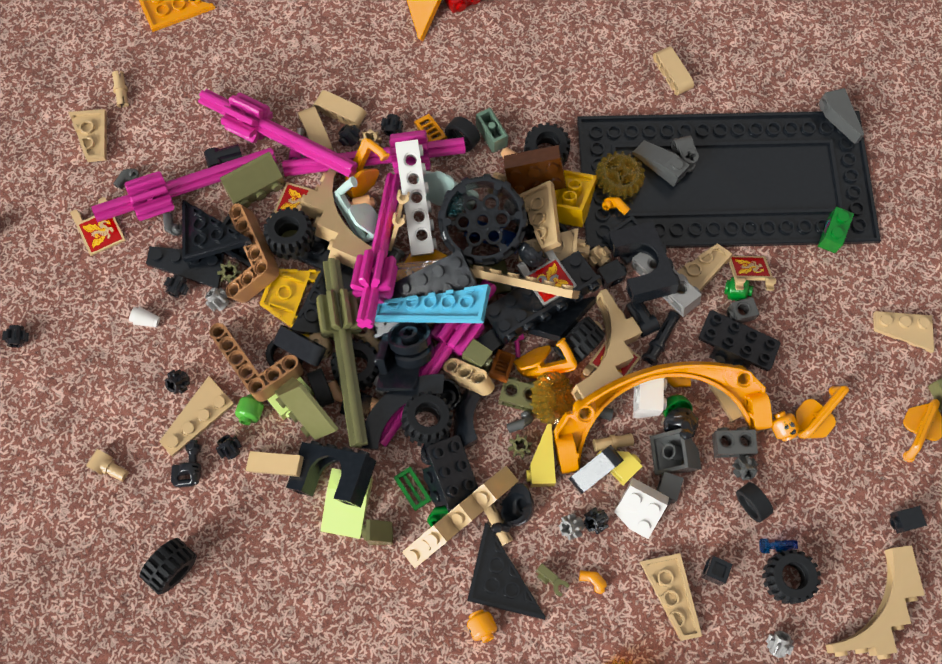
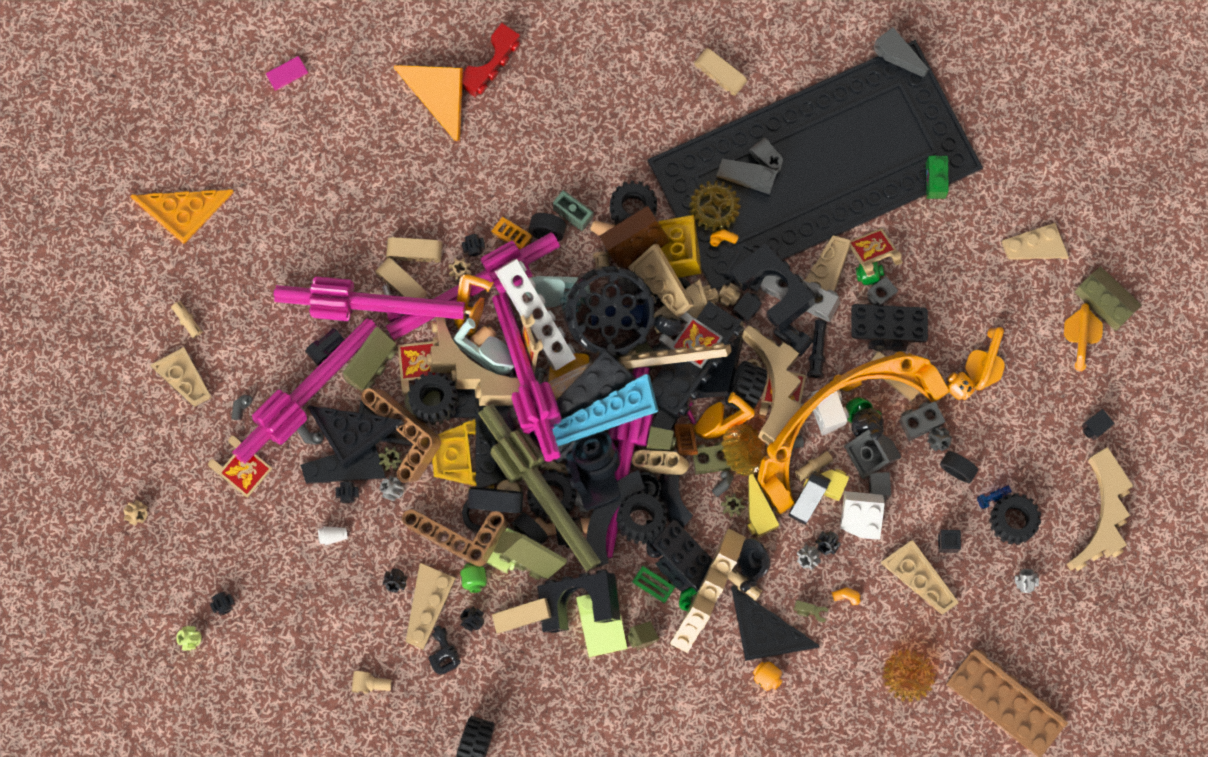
camera: 25 degrees left, 5 degrees up
(349, 135) = (437, 273): black gear -> none

